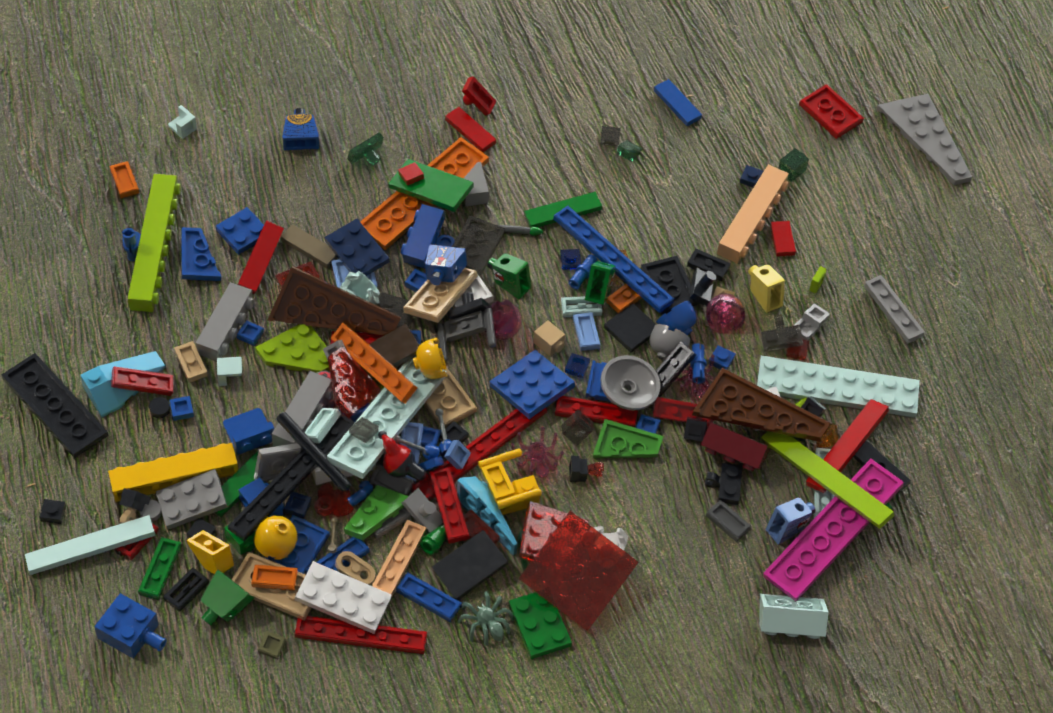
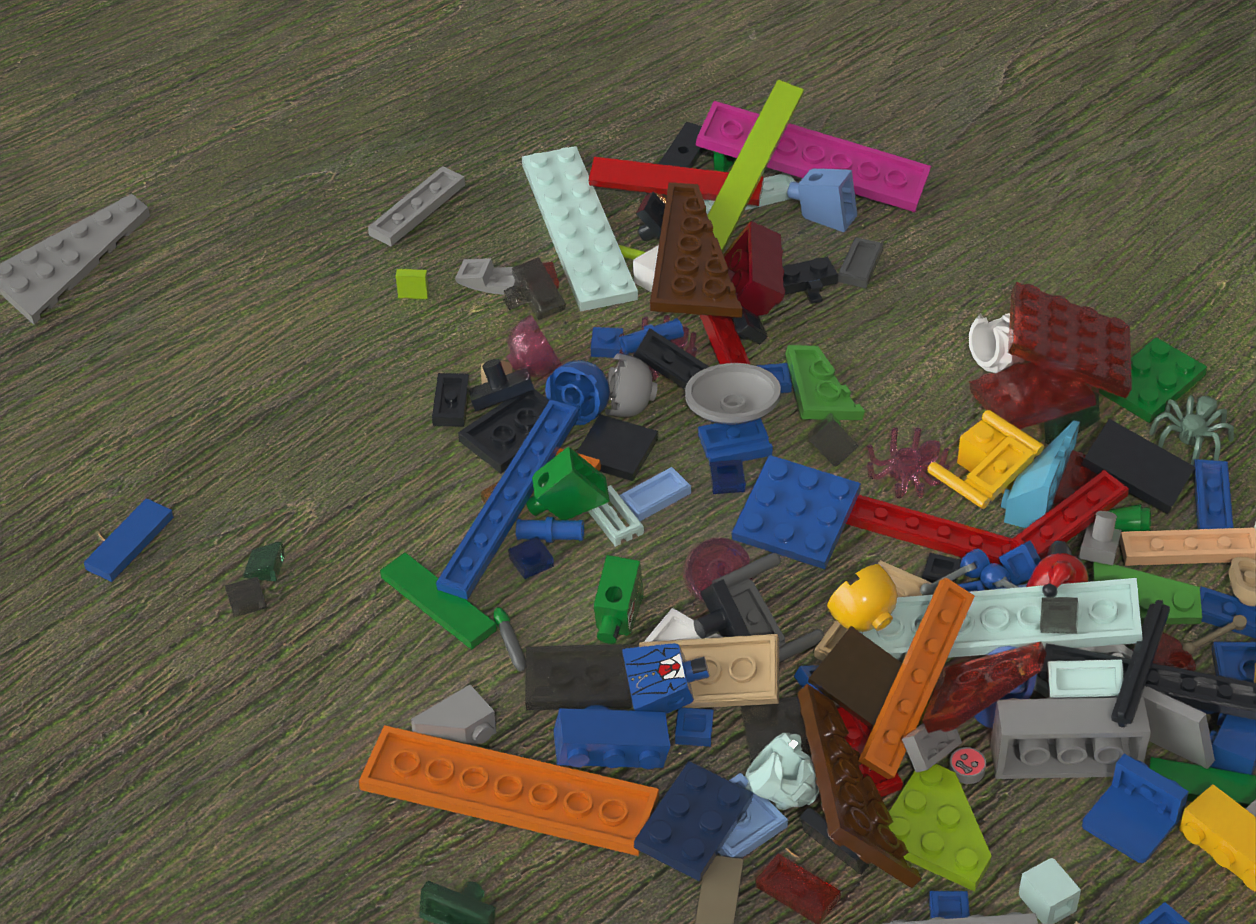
camera: 110 degrees left, 10 degrees down
(411, 173) = (498, 795): red tile -> none
(436, 187) = (501, 766): green tile -> none
(457, 454) = (986, 537): medium blue plate -> none
(470, 129) = (324, 786): red tile -> none
(478, 95) = (255, 790): red tile -> none
(549, 338) = (702, 519): tan brick -> none
(579, 469) = (897, 412): black piece -> none
(595, 410) = (788, 434): red tile -> none
(750, 176) = (246, 410): dark blue plate -> none
(753, 213) = (325, 380): light nougat brick -> none
(767, 287) = (461, 319): light yellow torso -> none
(782, 238) = (350, 344): red tile -> none
(794, 163) = (204, 366): clear green brick -> none
(794, 618) = (957, 169): light aqua slope -> none
(831, 111) = (64, 365): red tile -> none

